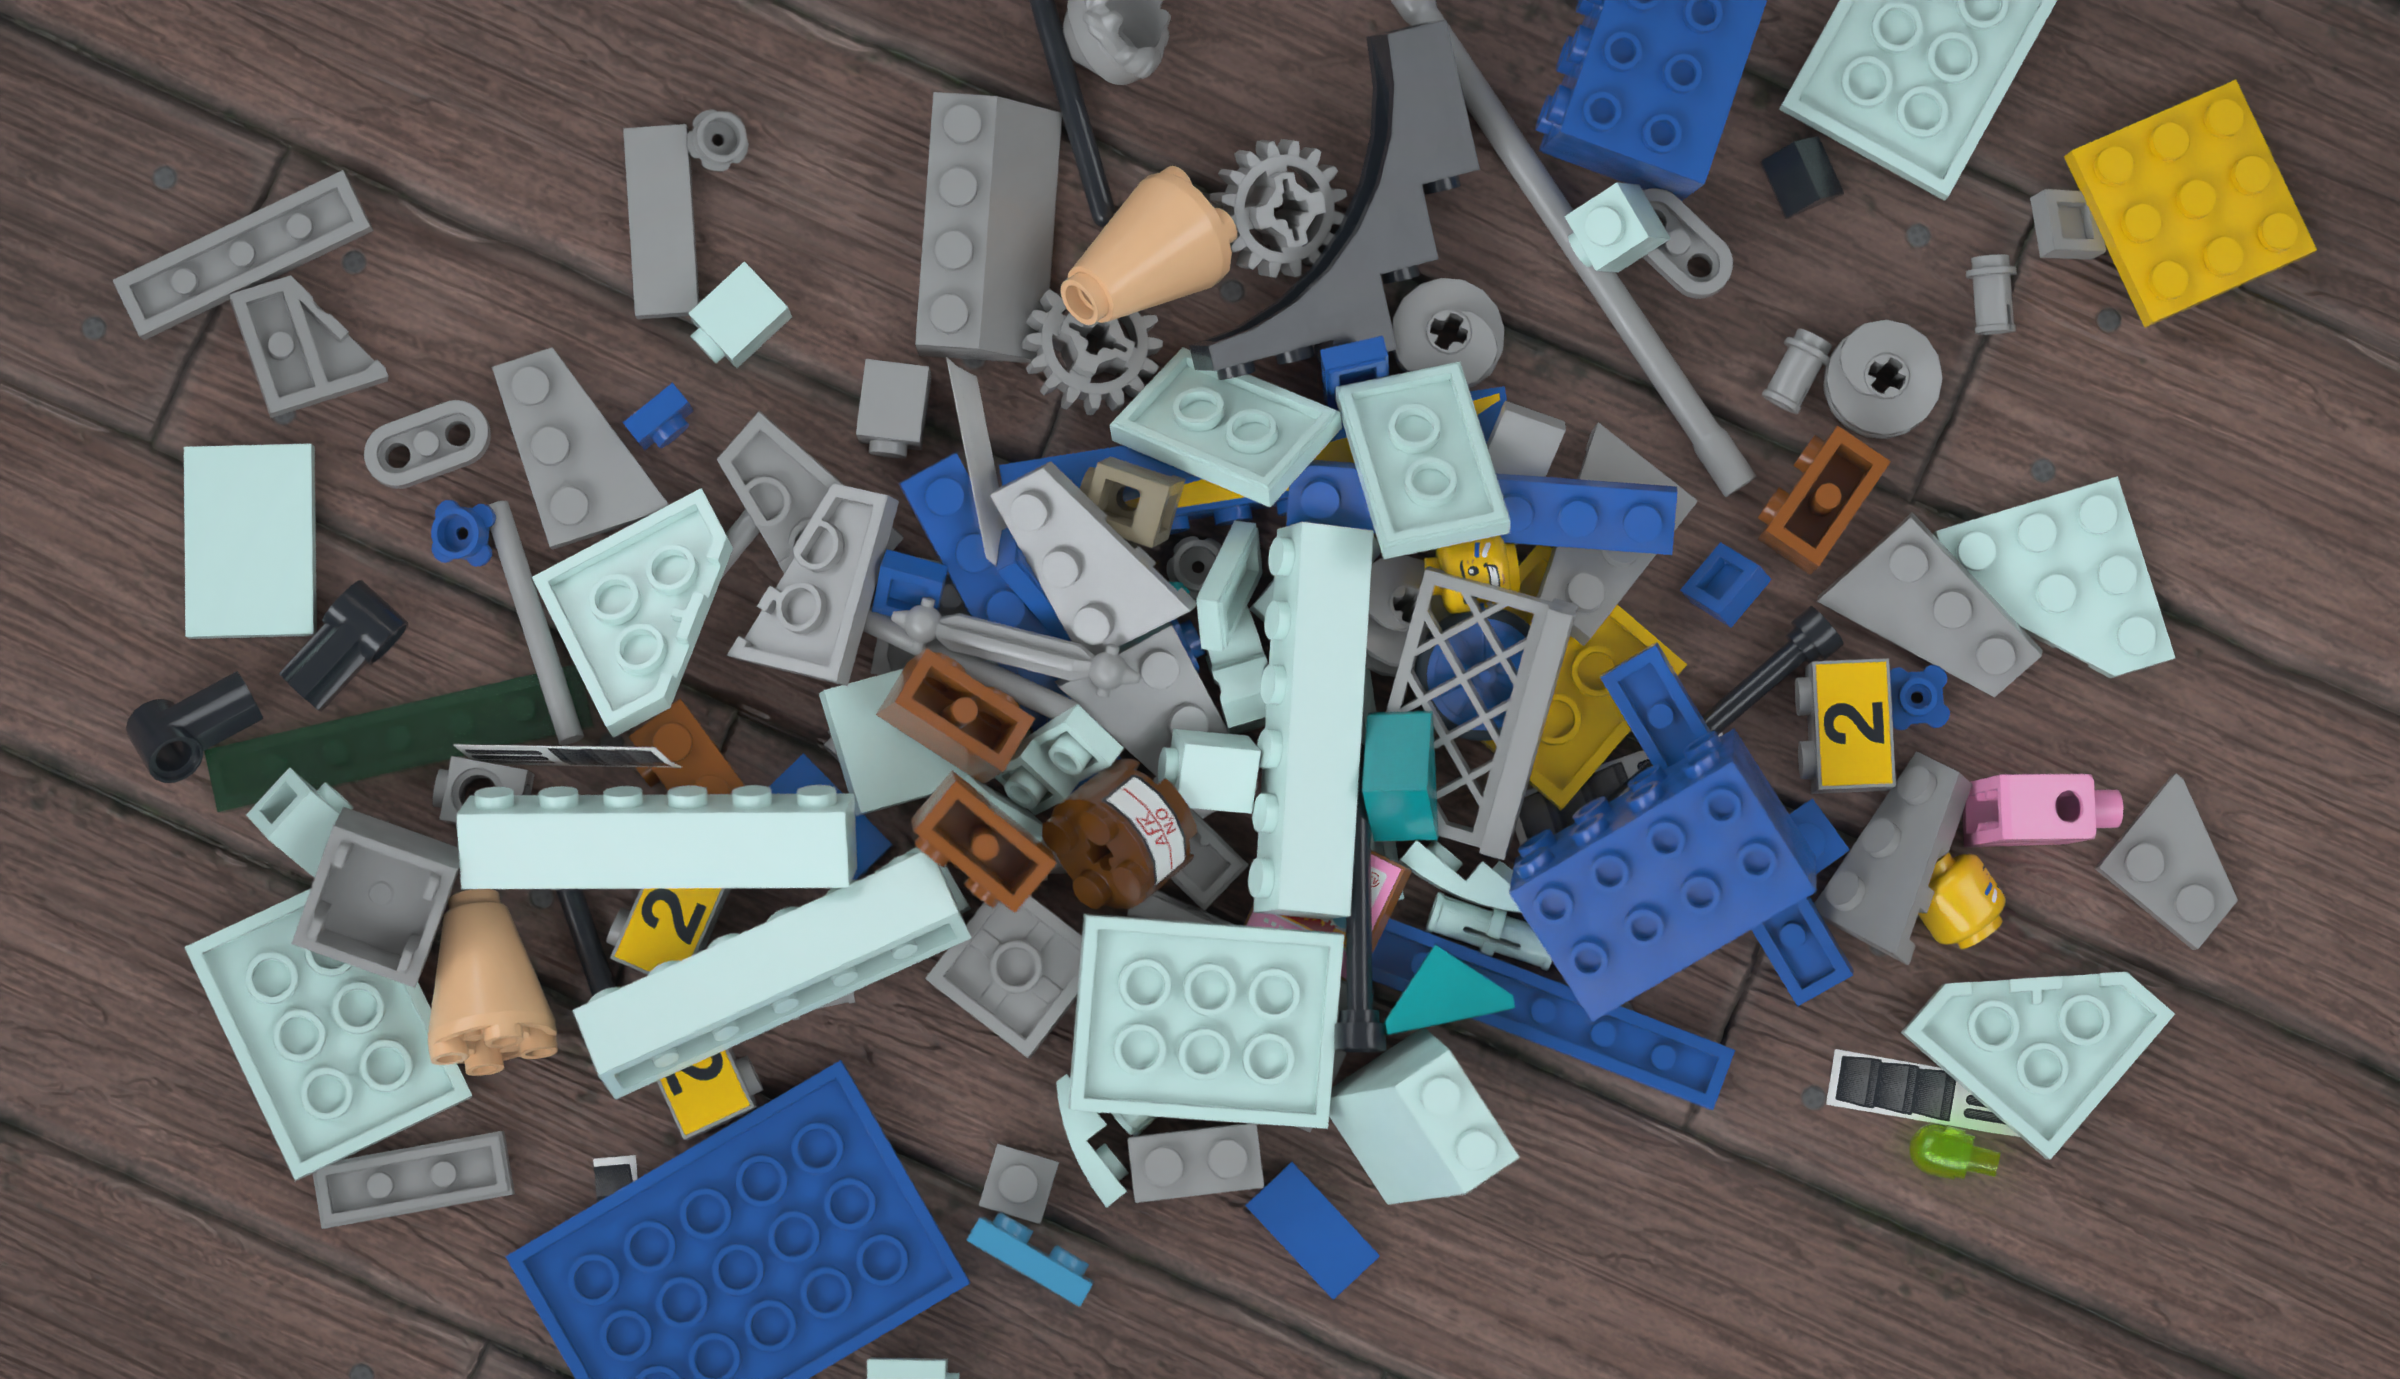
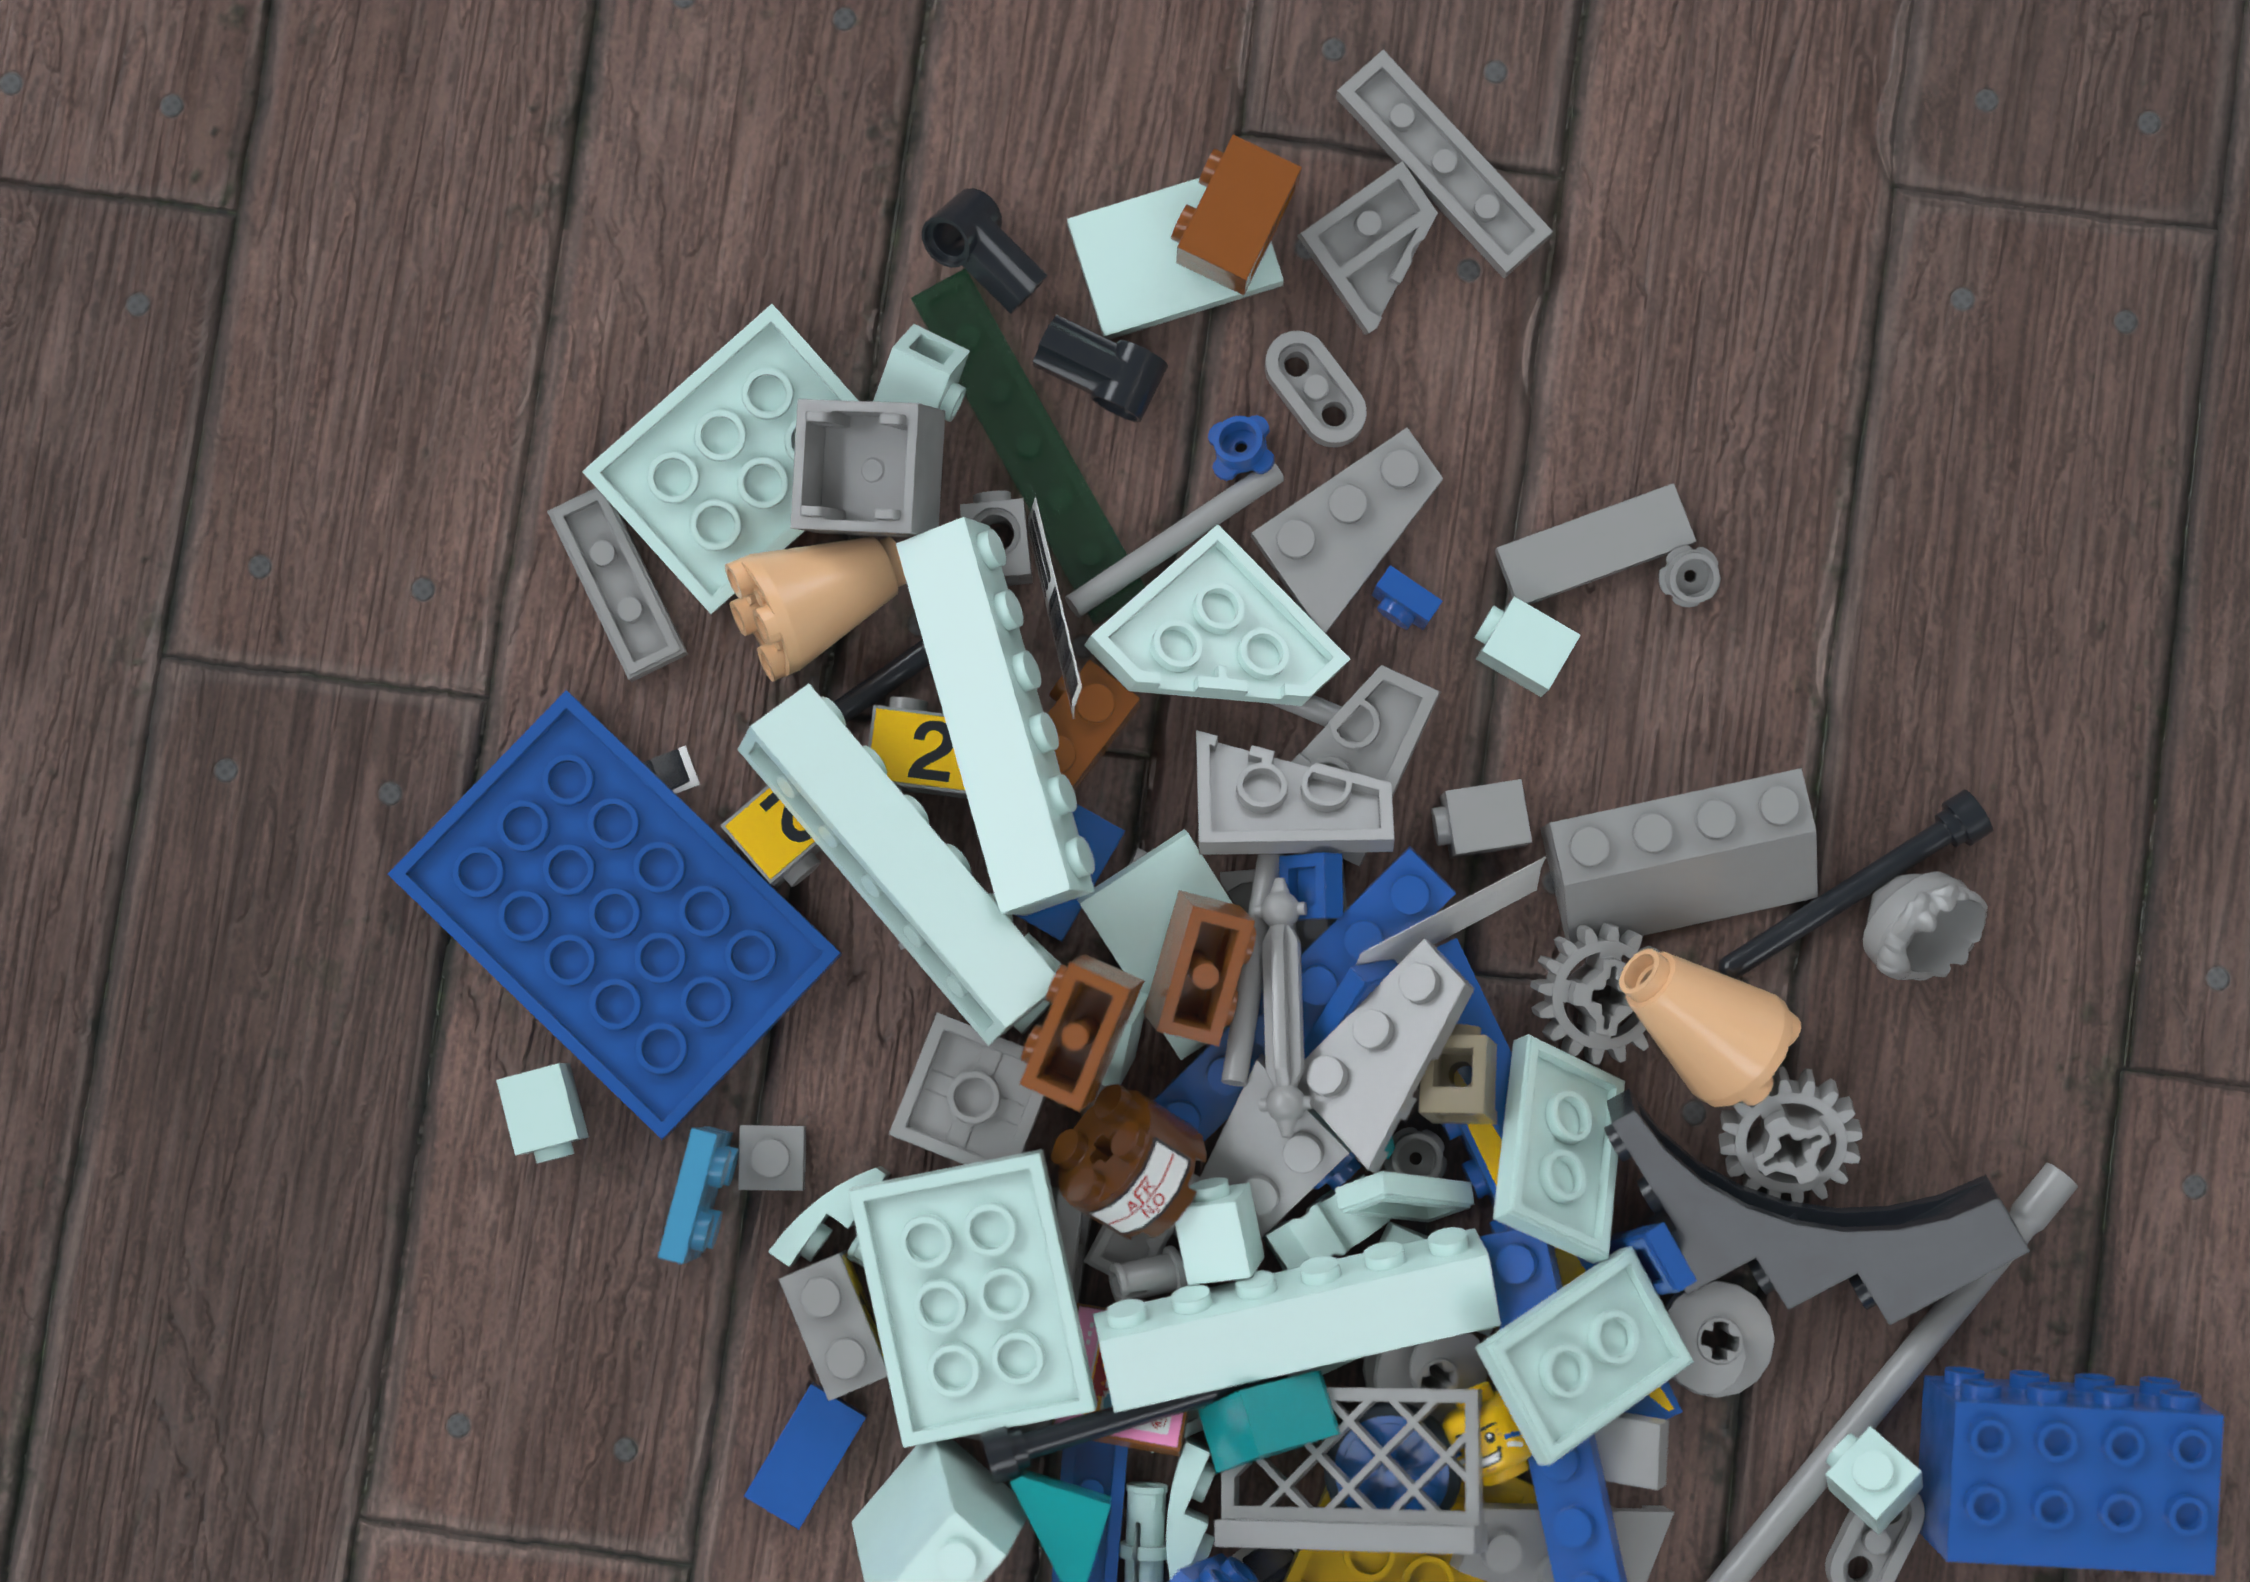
camera: 80 degrees right, 0 degrees up
(235, 468) = (1236, 214): none -> dark orange brick
(1057, 759) = (1188, 1079): light aqua slope -> none
(1234, 850) = (1148, 1276): none -> light grey pin

